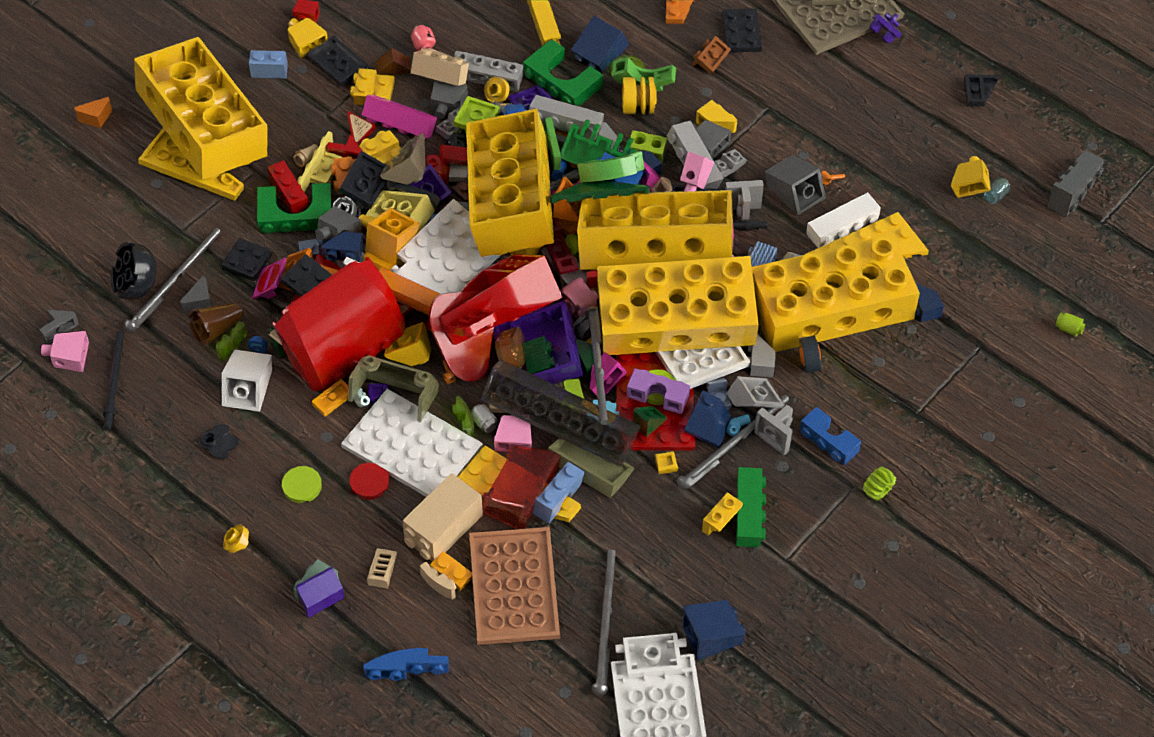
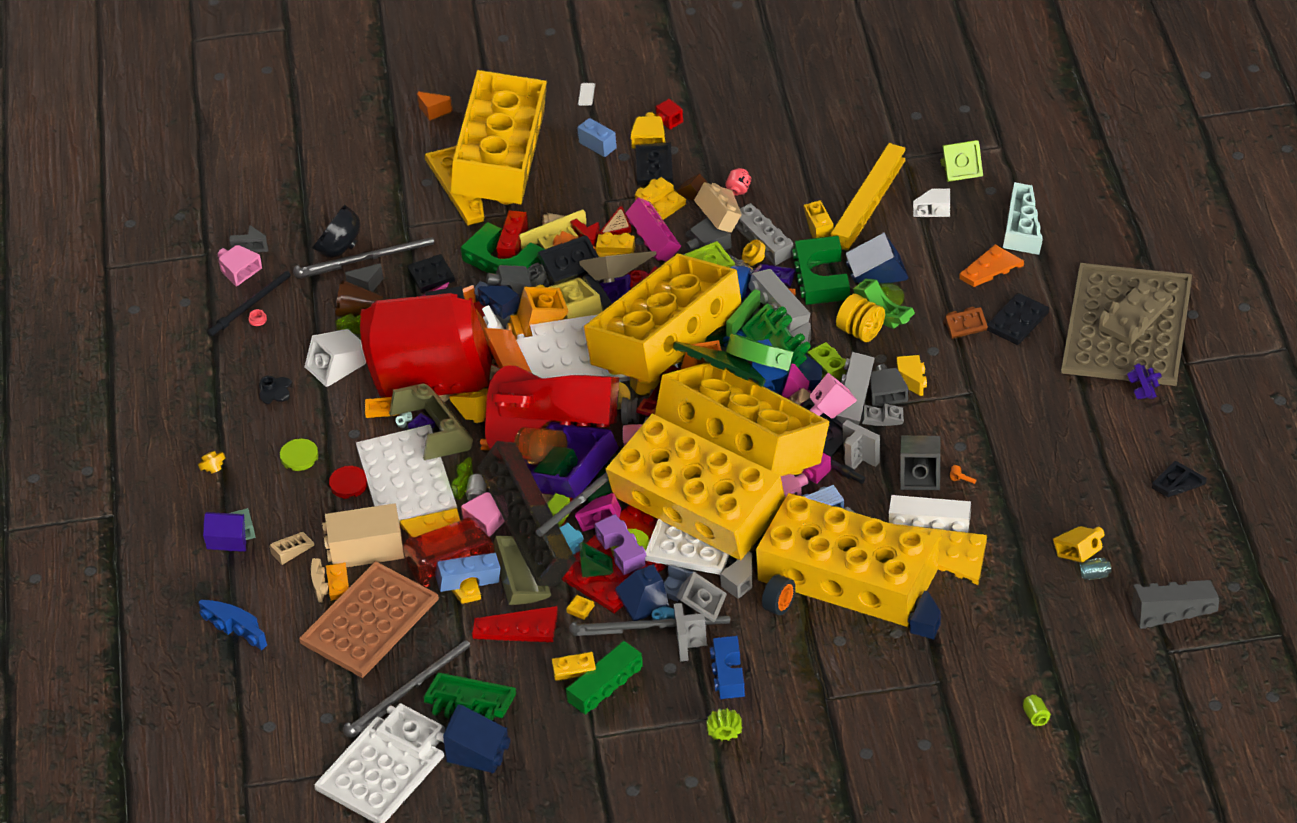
camera: 45 degrees right, 10 degrees down
(136, 384) = (257, 317): none -> coral plate
(214, 32) = (586, 94): none -> white sticker
(521, 36) = (818, 220): none -> yellow slope
(638, 508) = (528, 625): none -> red wing
(664, 590) = (452, 690): none -> green hinge

